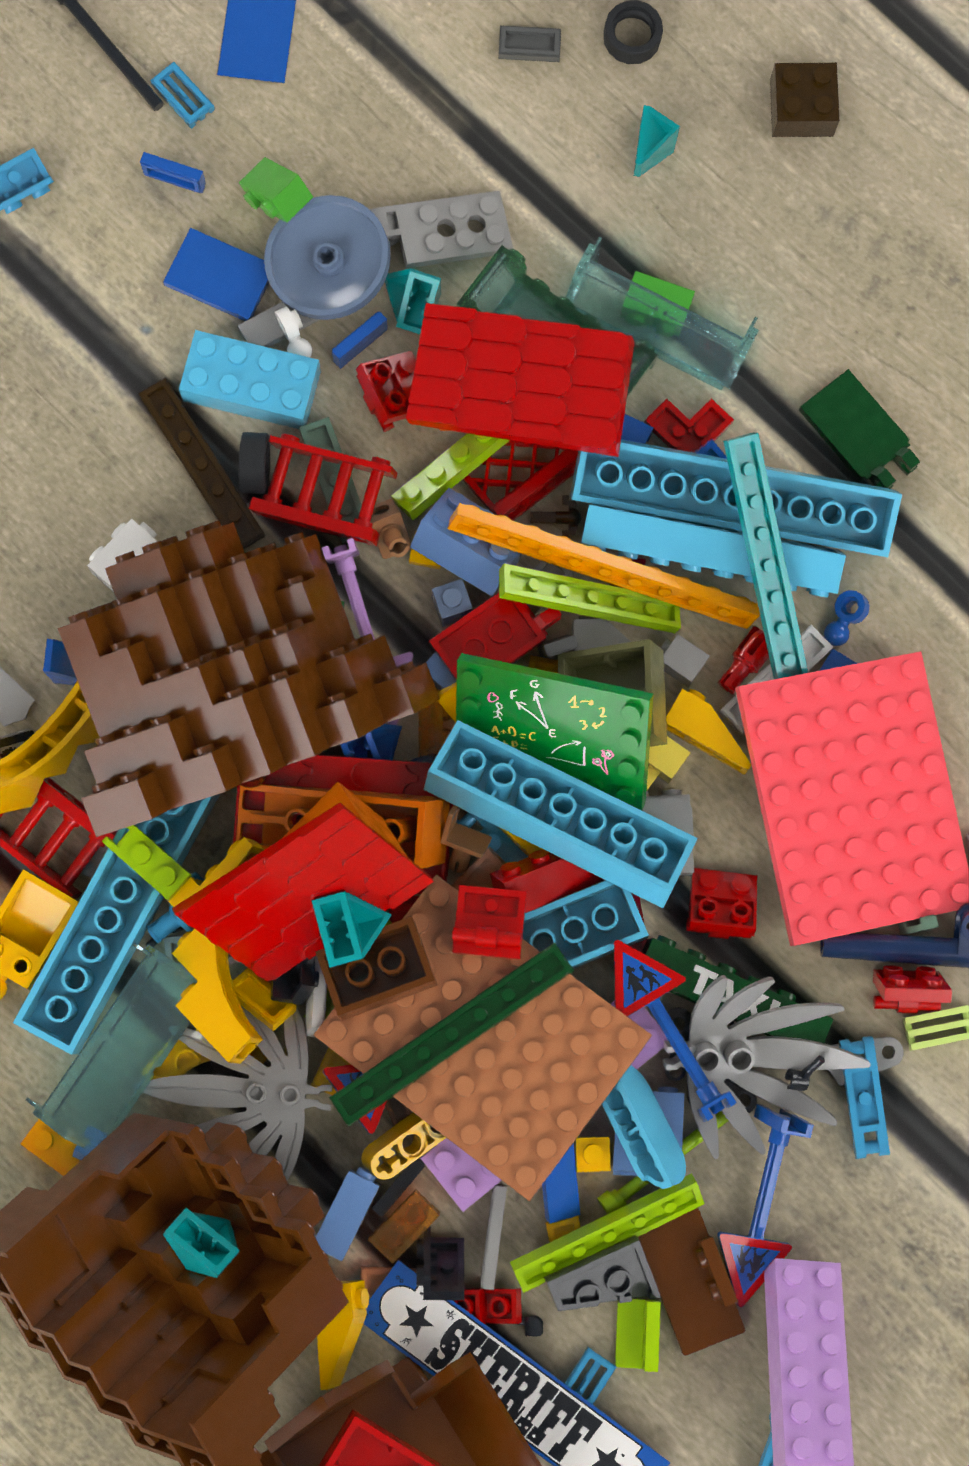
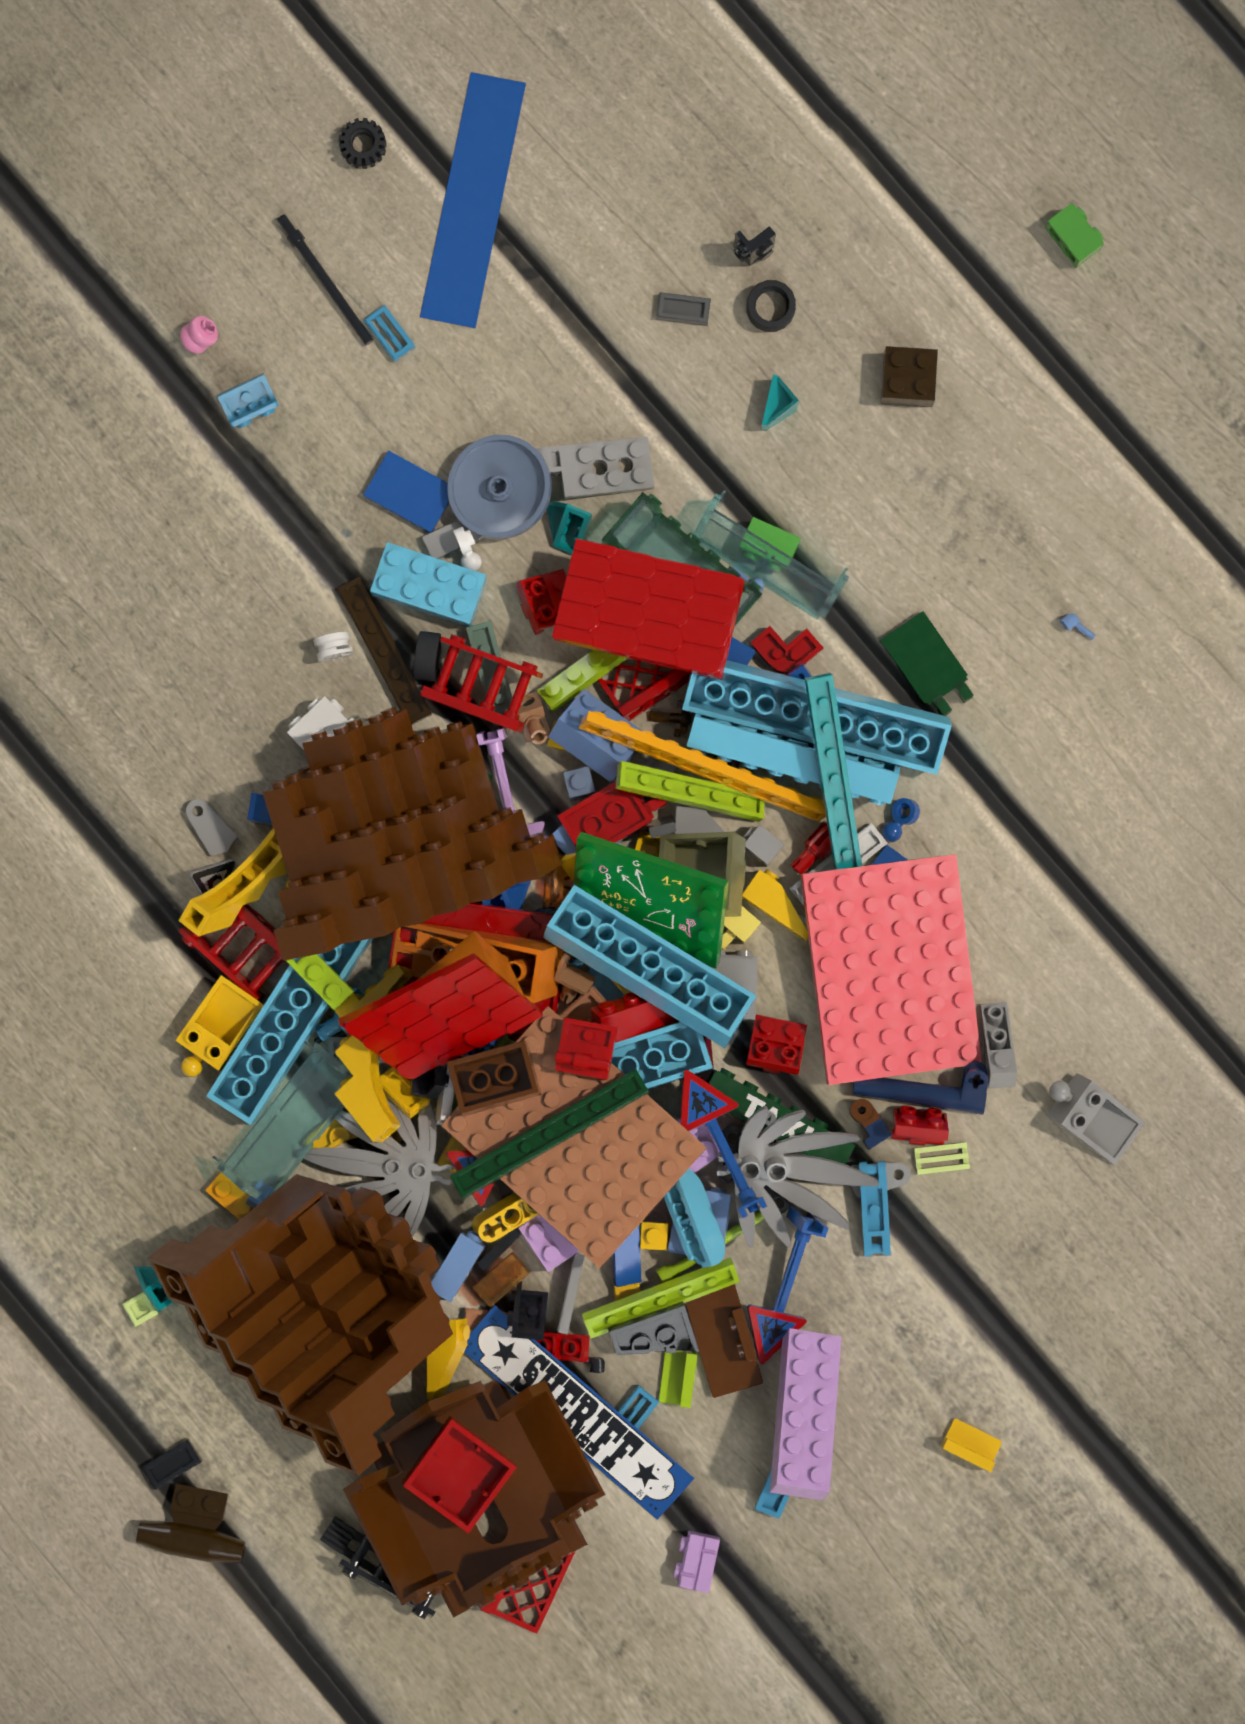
camera: 15 degrees right, 5 degrees up
(138, 460) = (333, 646): none -> white wheel
(173, 172) = (377, 402): blue tile -> none
(202, 1242) = (343, 1279): teal slope -> none
(275, 190) = (460, 426): bright green brick -> none
(347, 926) = (473, 1045): teal slope -> none
(359, 339) = (521, 556): blue tile -> none
(801, 1079) = (824, 1190): black hand -> none
(847, 988) = (867, 1116): none -> leg
(918, 925) = (937, 1074): sand green tile -> none

